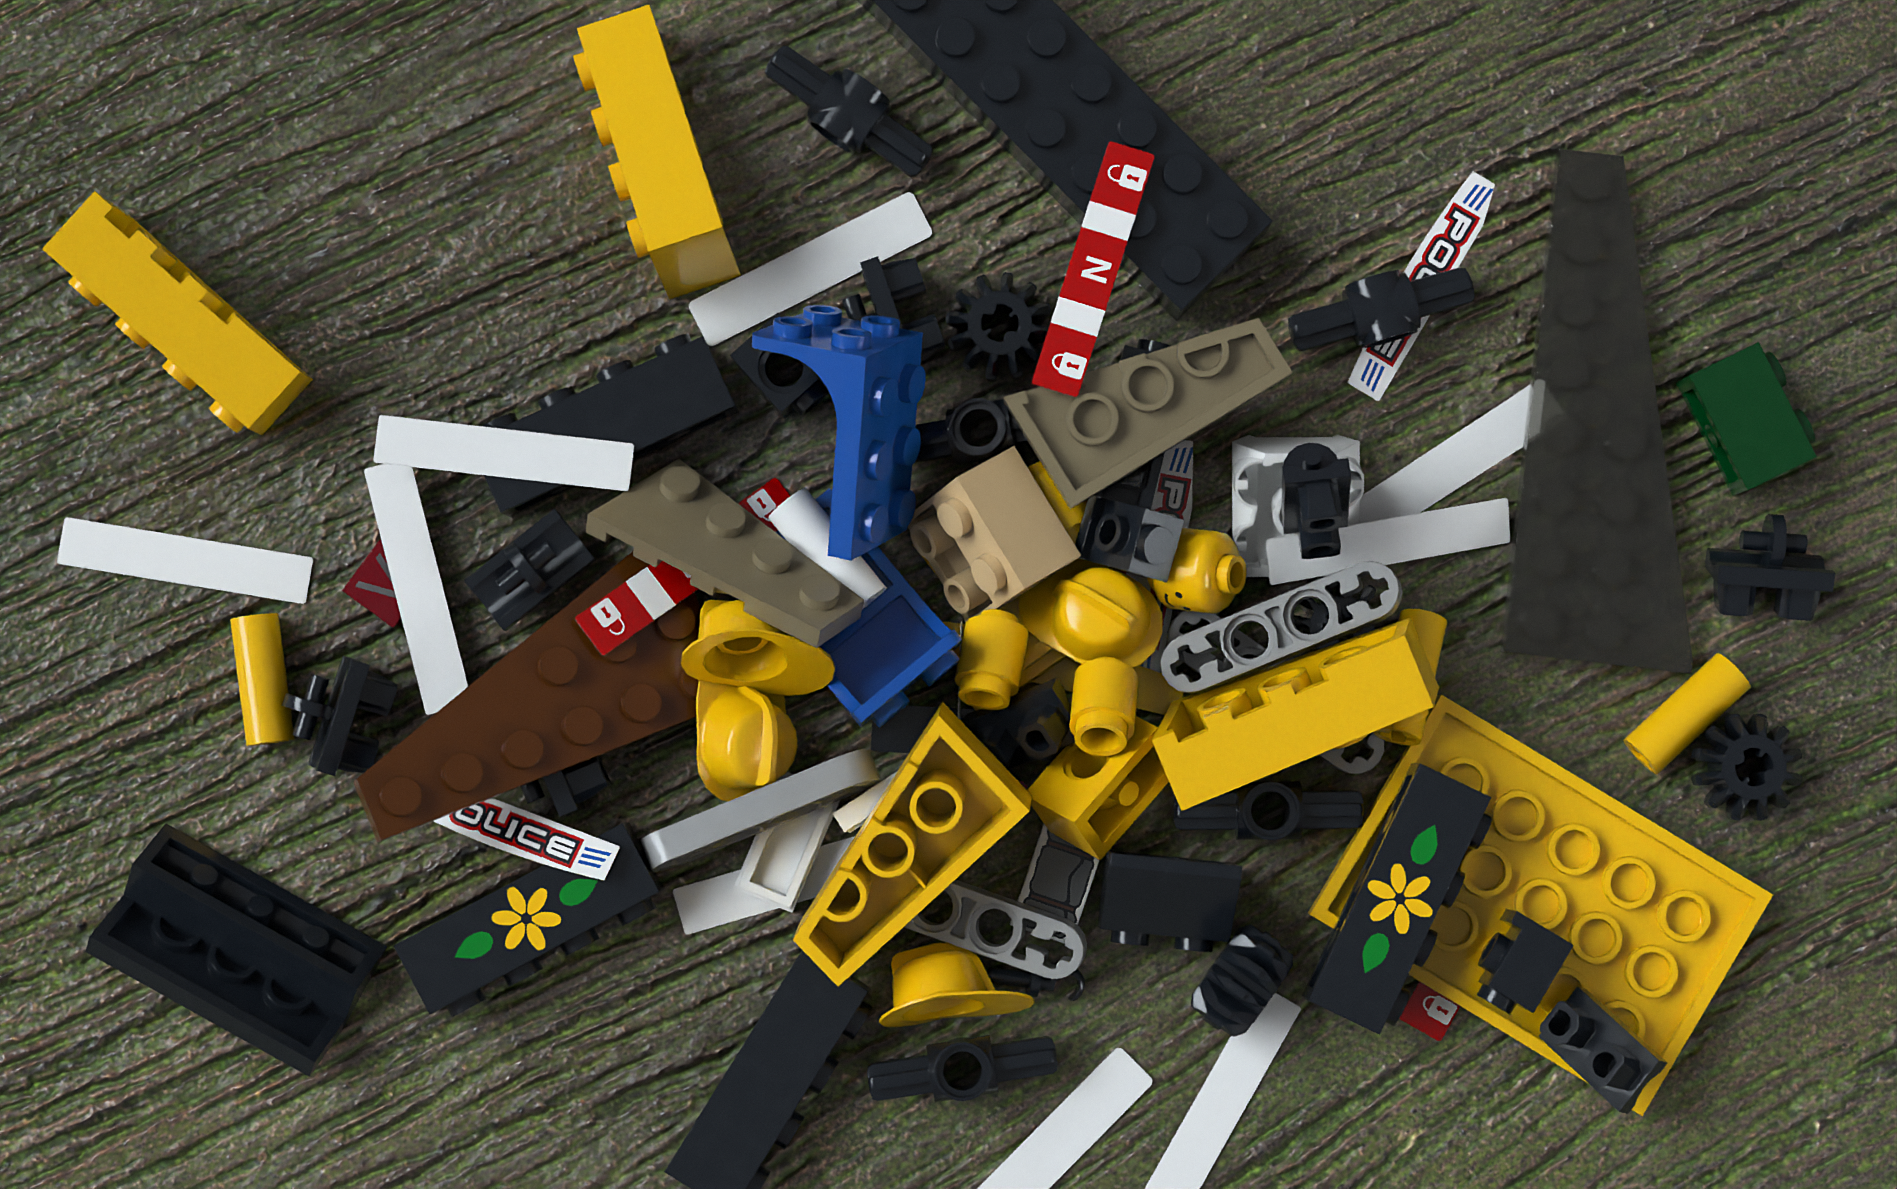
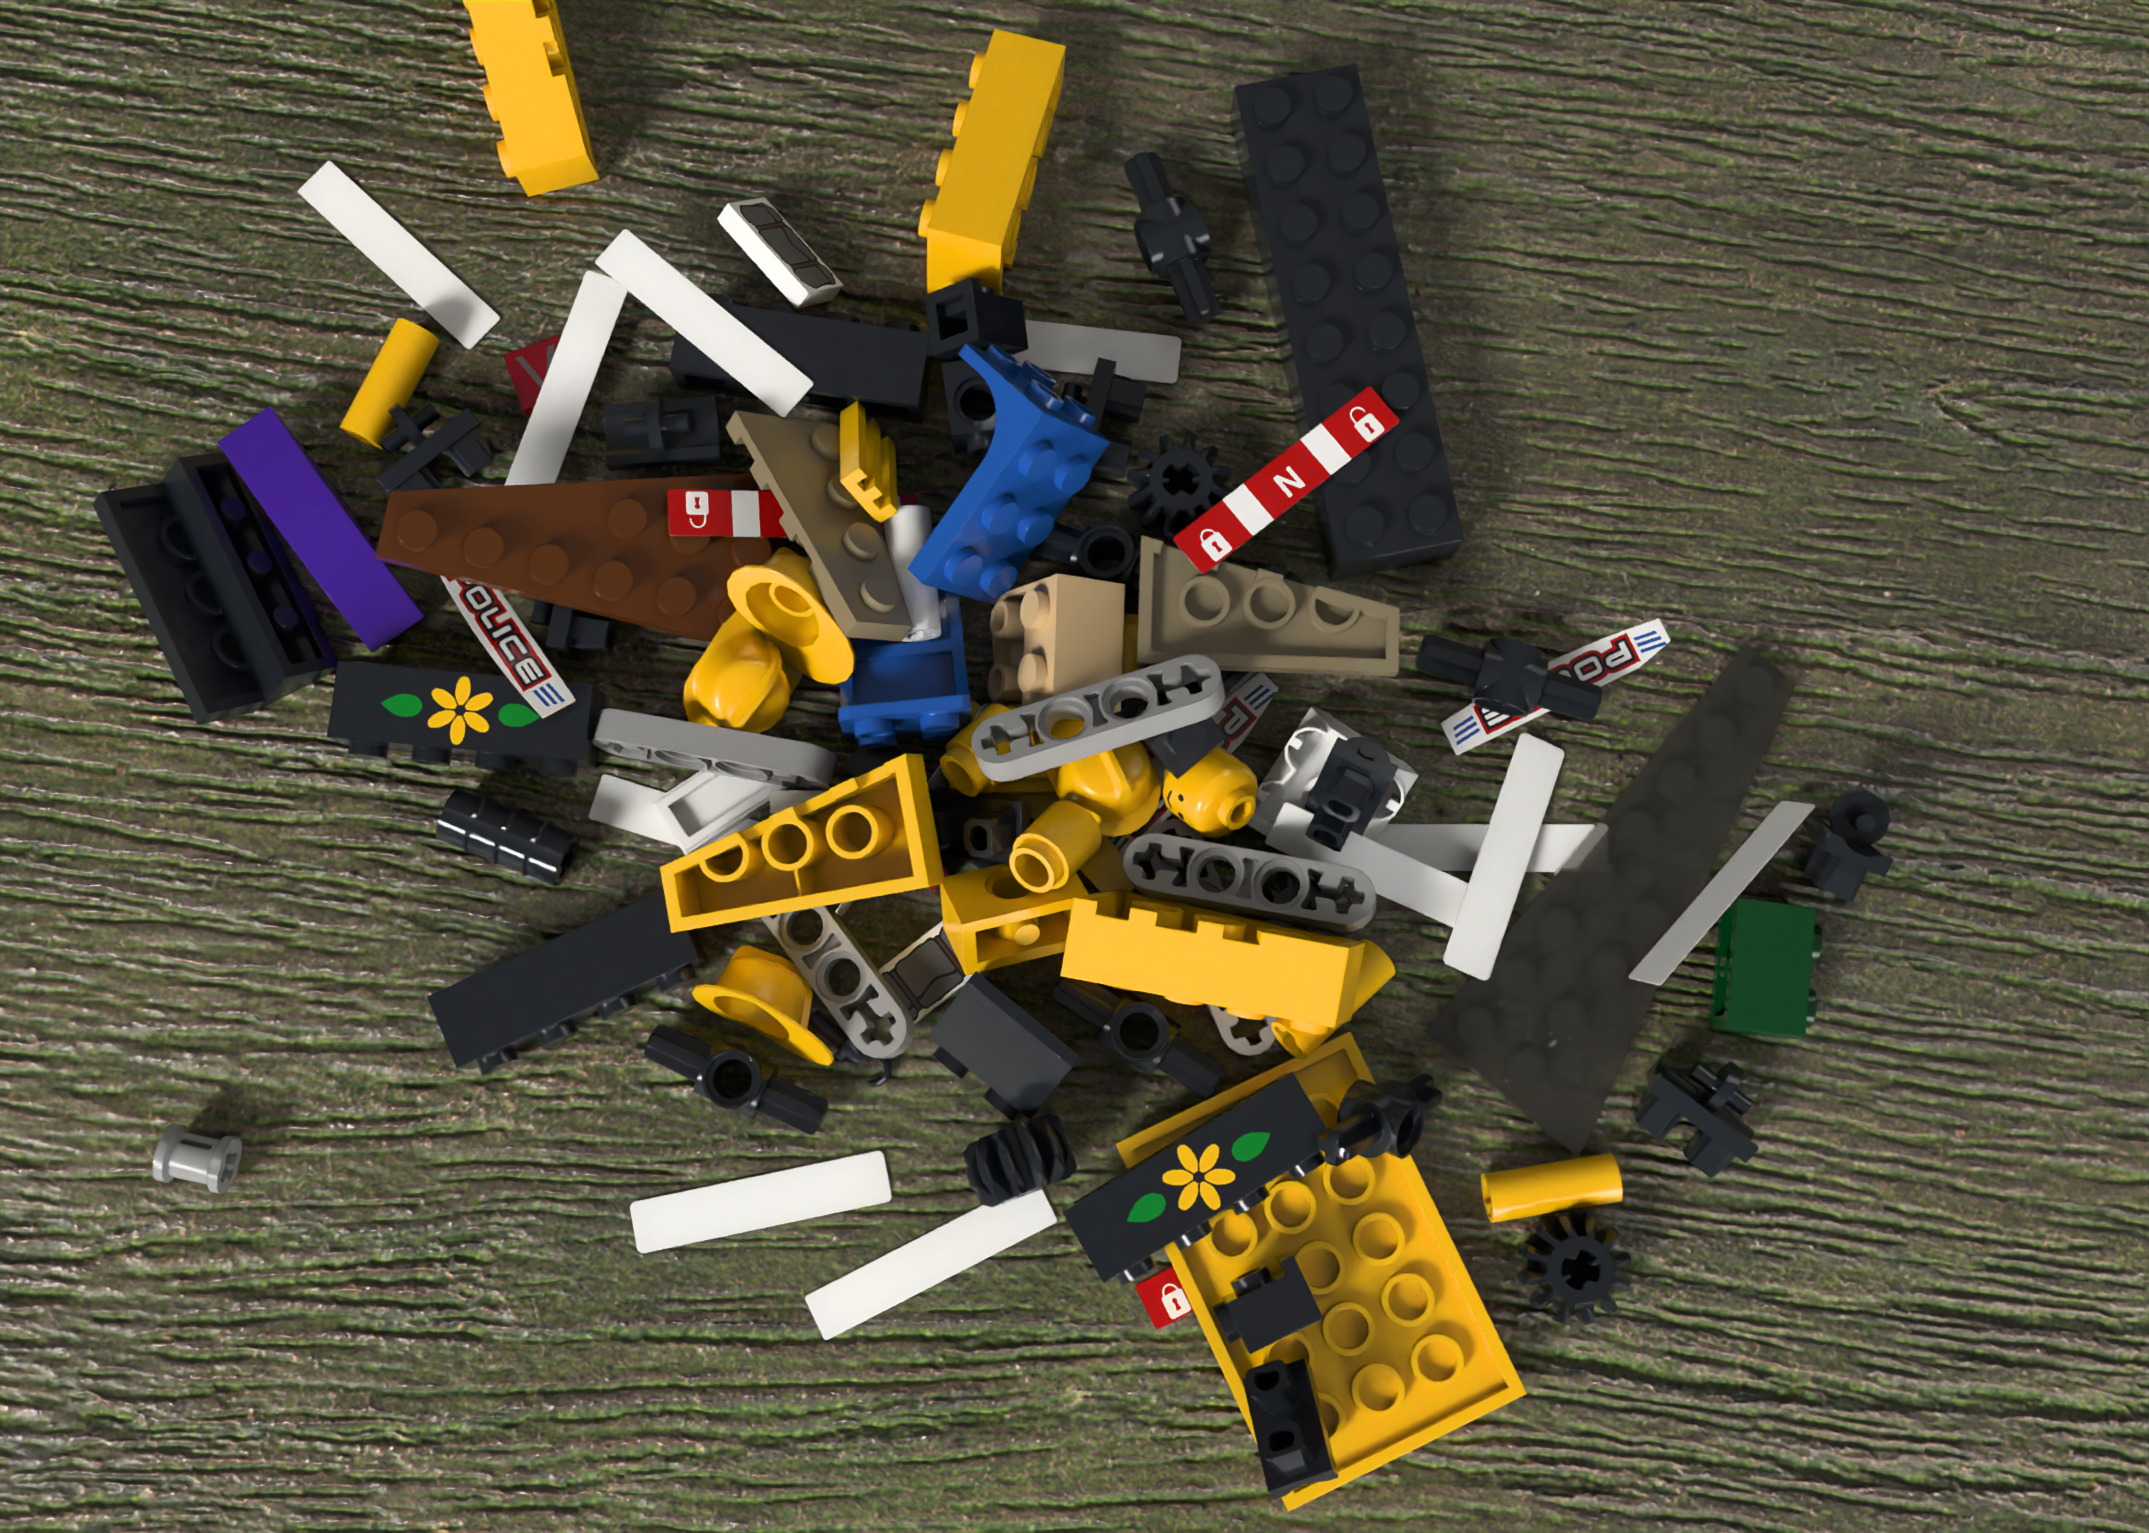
camera: 30 degrees right, 5 degrees down
(293, 842) = (320, 528): none -> dark purple slope
(520, 344) = (779, 252): none -> tile
(633, 995) = (508, 836): none -> black axle
(726, 482) = (868, 458): none -> yellow tile
(734, 301) = (976, 317): none -> black brick
(1081, 584) = (1101, 727): none -> light grey beam
(1474, 463) = (1503, 857): none -> white sticker
(1515, 753) = (1379, 1119): none -> black axle
(1672, 377) = (1721, 892): none -> white sticker
(1751, 271) = (1846, 848): none -> black hips

